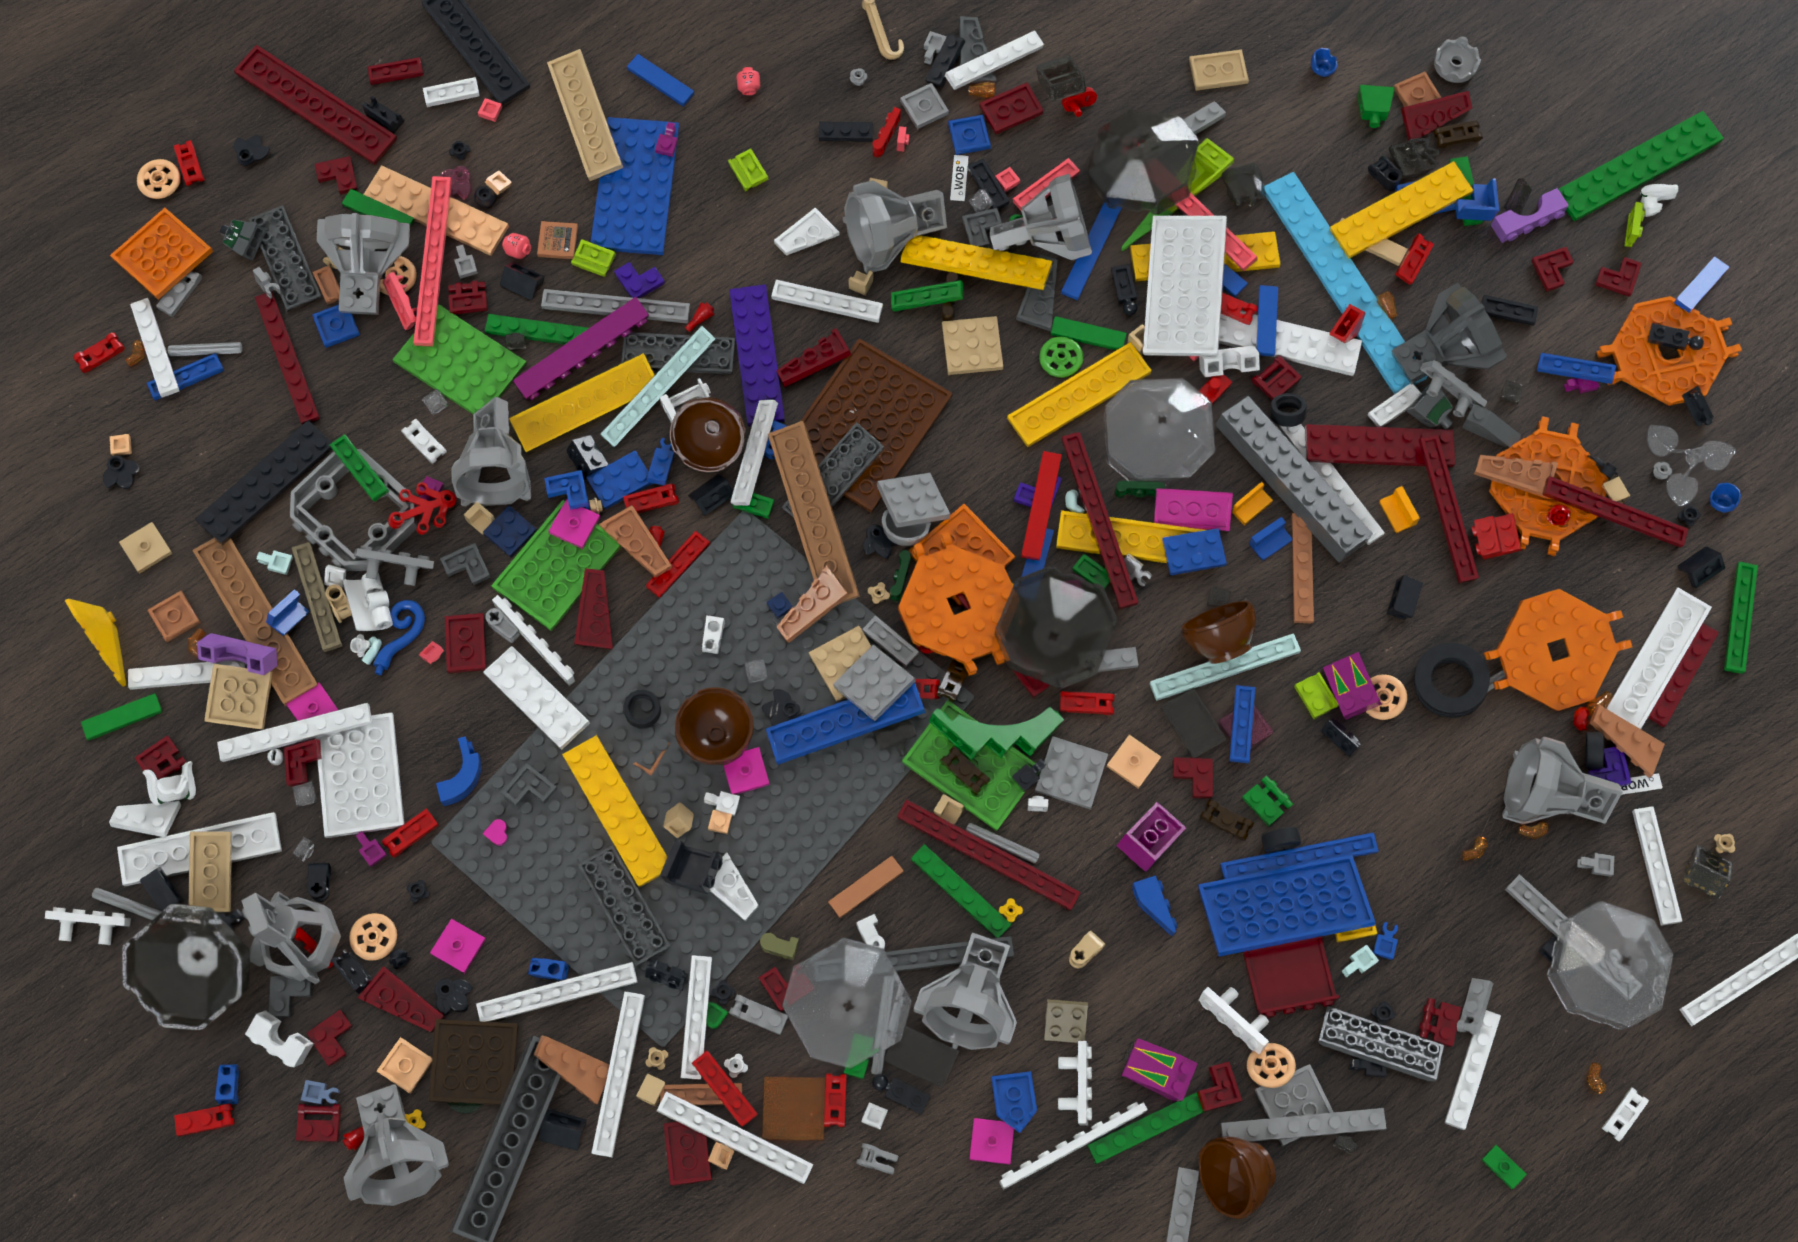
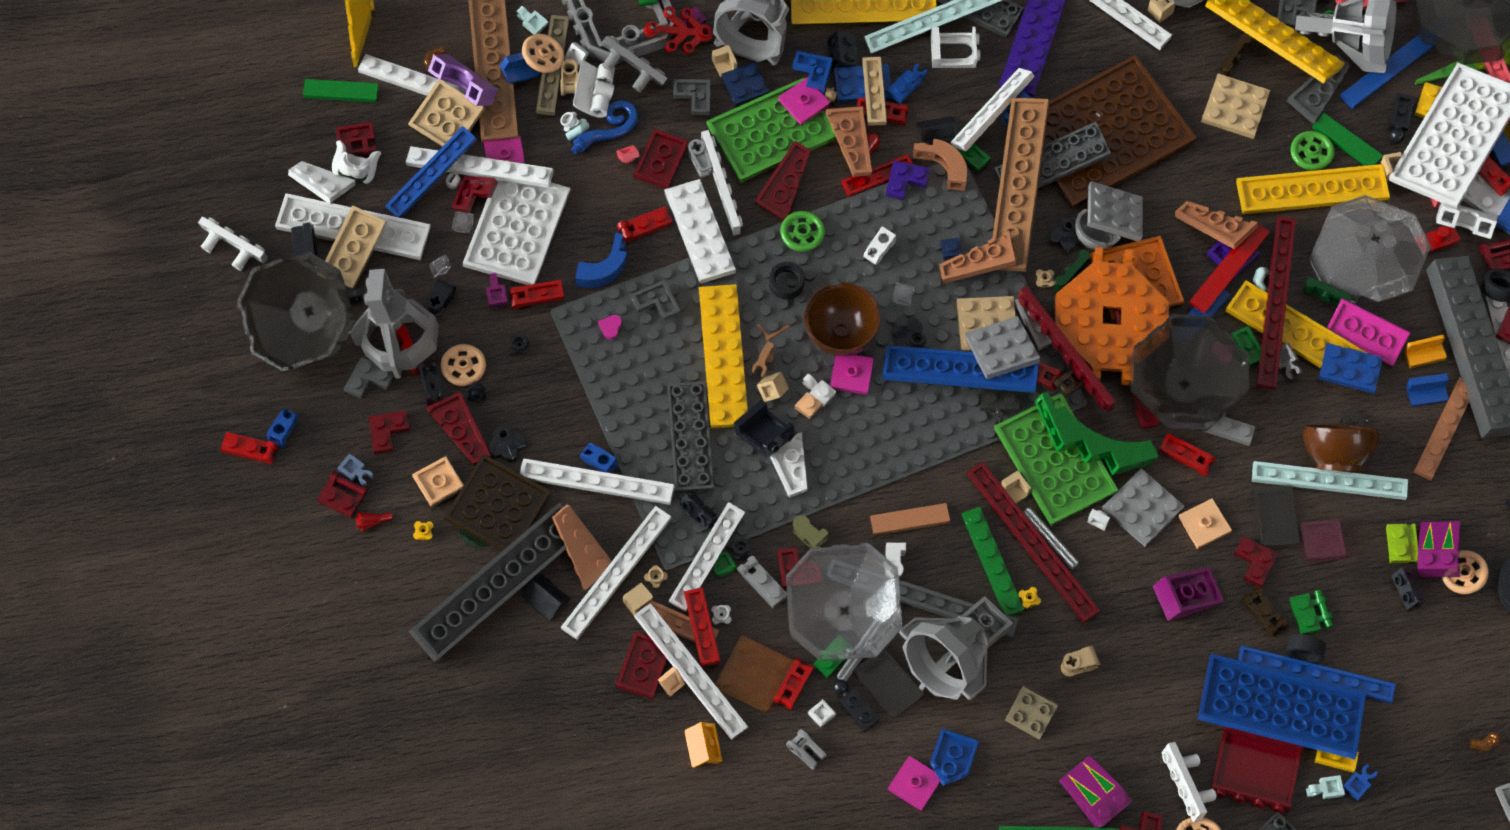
camera: 25 degrees right, 5 degrees down
(125, 903) = (266, 240): light grey axle -> none
(174, 616) = (424, 28): nougat tile -> none
(250, 761) = (431, 172): none -> blue plate
(264, 1033) = (334, 398): white arch -> none
(295, 604) = (539, 56): none -> light nougat plate
(392, 1142) = (397, 530): light grey plate -> none
(458, 946) = (531, 405): dark pink plate -> none
(481, 714) = (645, 224): none -> red plate
(635, 484) = (874, 91): none -> tan plate
(636, 637) = (811, 219): none -> bright green plate
(659, 791) = (766, 355): none -> medium nougat plate
(700, 554) = (905, 174): none -> dark purple plate
(707, 434) = (958, 74): reddish brown rock -> none
(737, 518) = (948, 157): none -> nougat arch
(780, 1202) = (703, 744): none -> light orange panel
(824, 354) = (1086, 56): dark red wing -> none
(927, 295) = (1214, 44): green tile -> none
(938, 659) = (1070, 355): none -> dark red plate
(964, 770) = (1046, 459): dark brown plate -> none
(1019, 470) = (1216, 224): none -> nougat wing
(1027, 776) = (1101, 491): black plate -> none
(1080, 1140) = (977, 819): white plate -> none
(1084, 1092) = (1018, 779): white plate -> none
(1151, 900) = (1160, 646): blue slope -> none
(1242, 724) = (1320, 534): blue tile -> none

